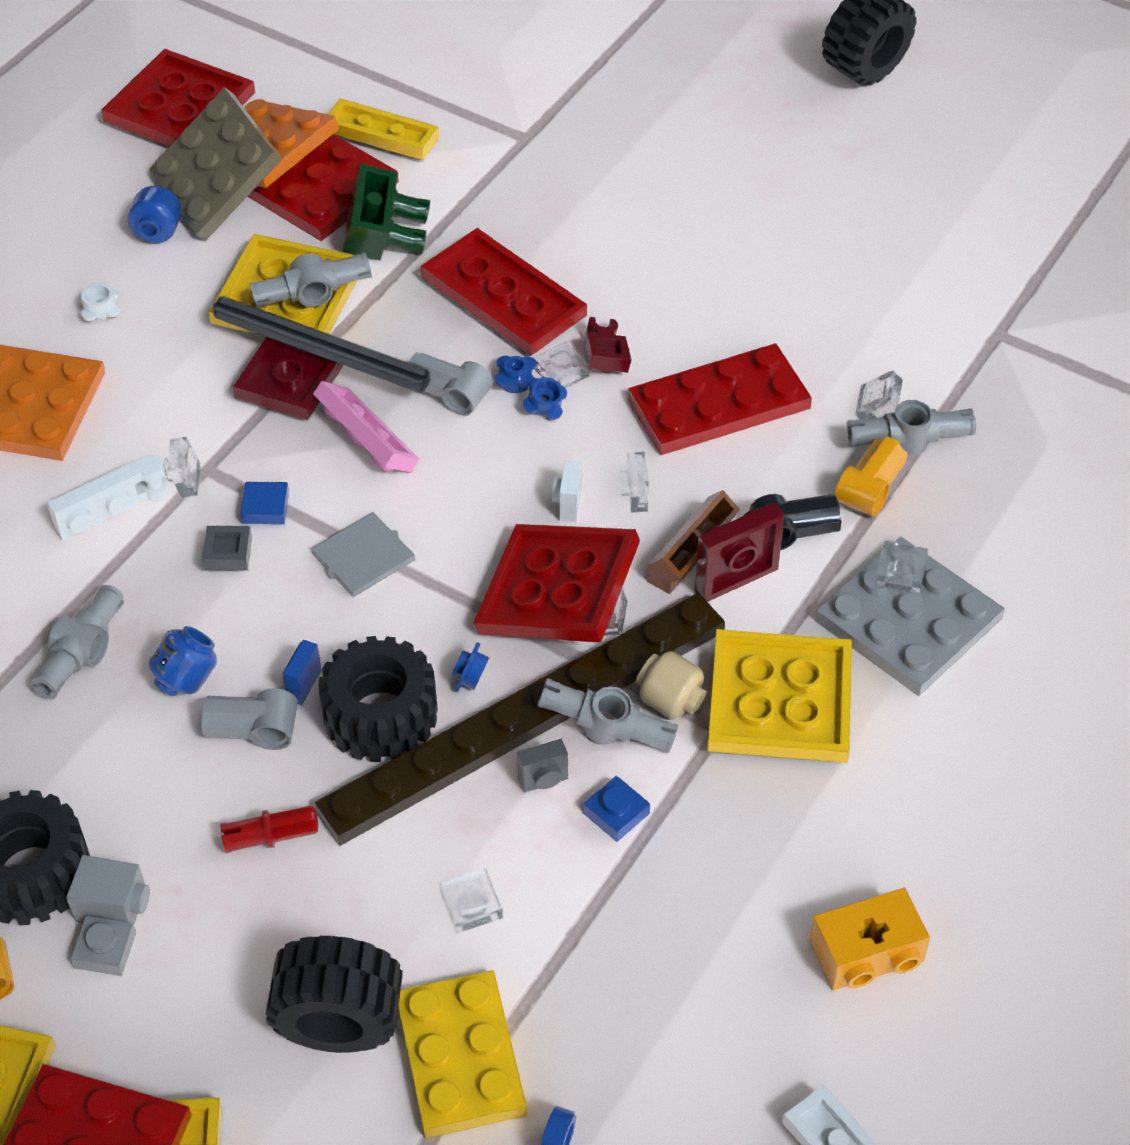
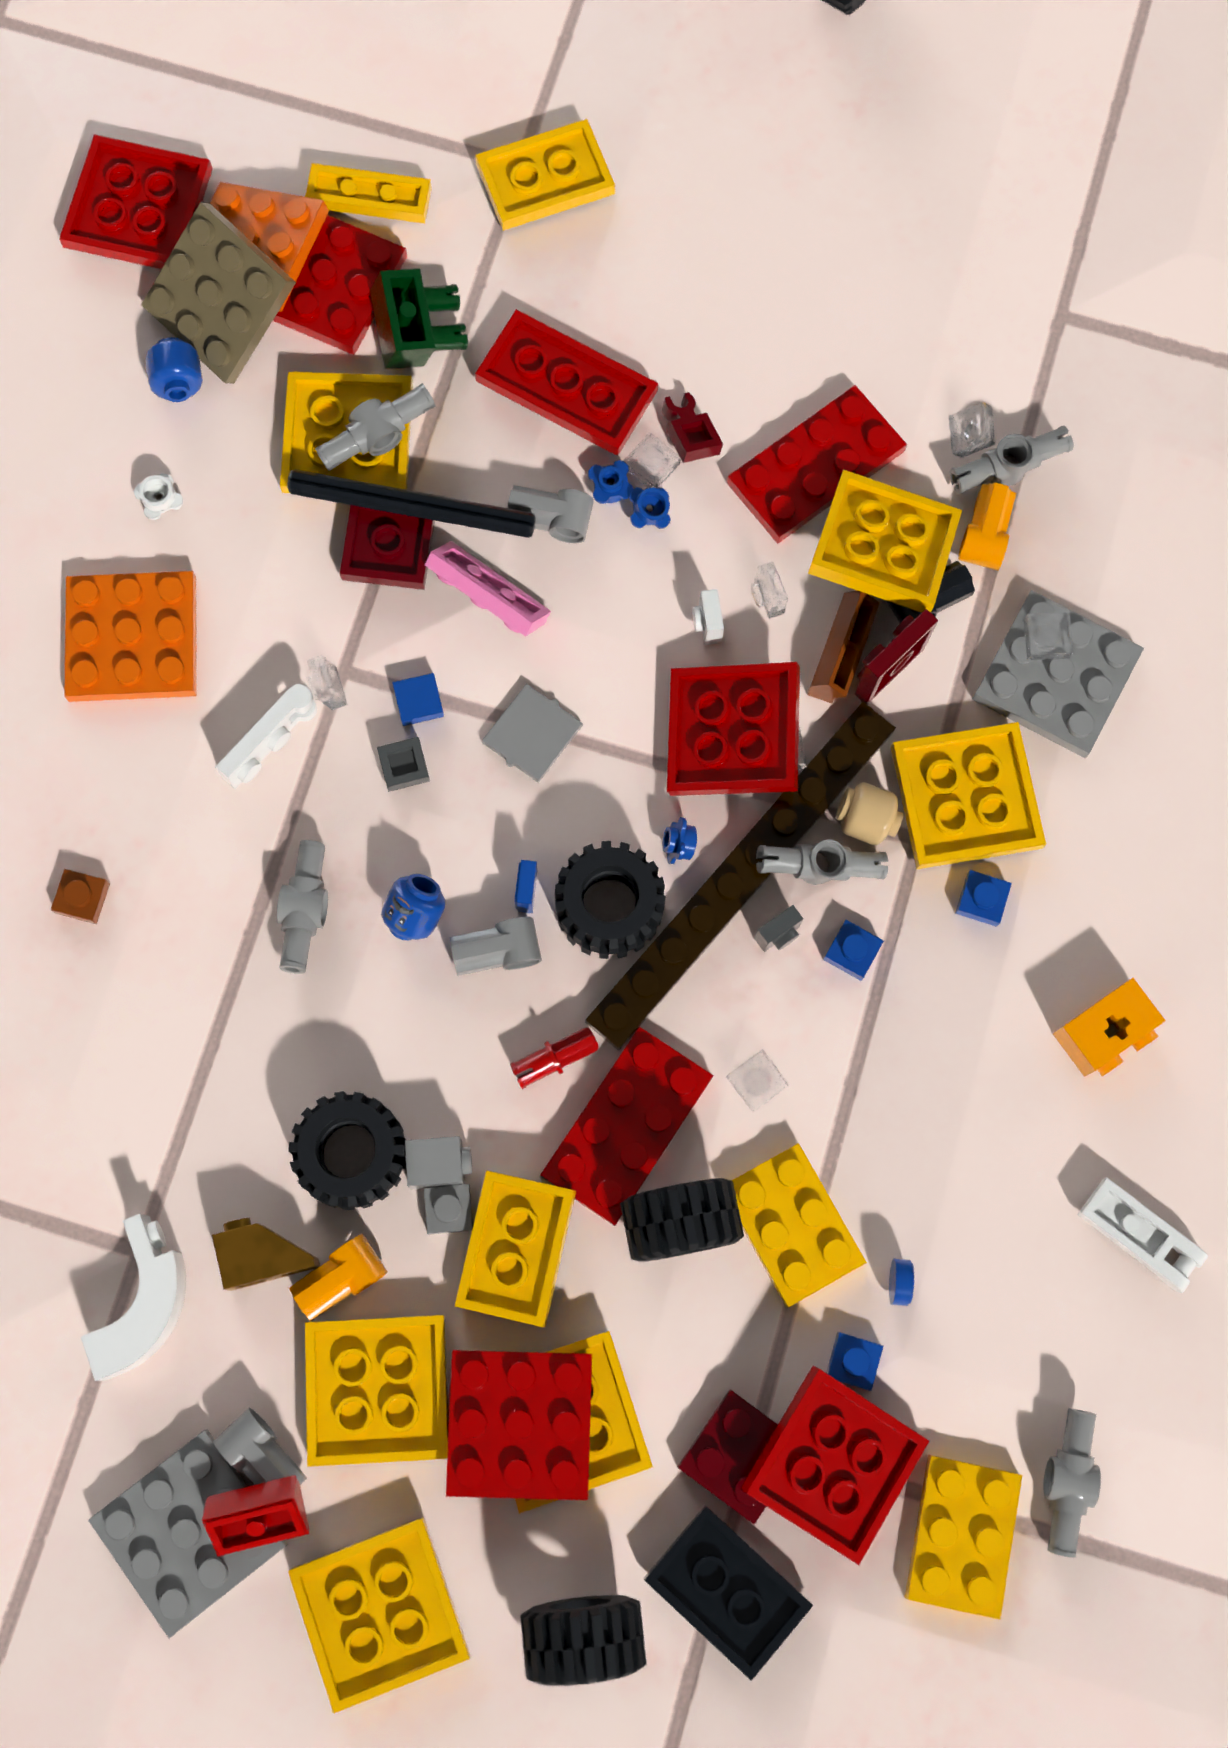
camera: 20 degrees left, 25 degrees up
(154, 993) = (515, 1248): none -> yellow plate
(340, 893) = (627, 1125): none -> red plate
(543, 143) = (545, 174): none -> yellow plate
(758, 455) = (885, 542): none -> yellow plate
(770, 793) = (983, 898): none -> blue plate

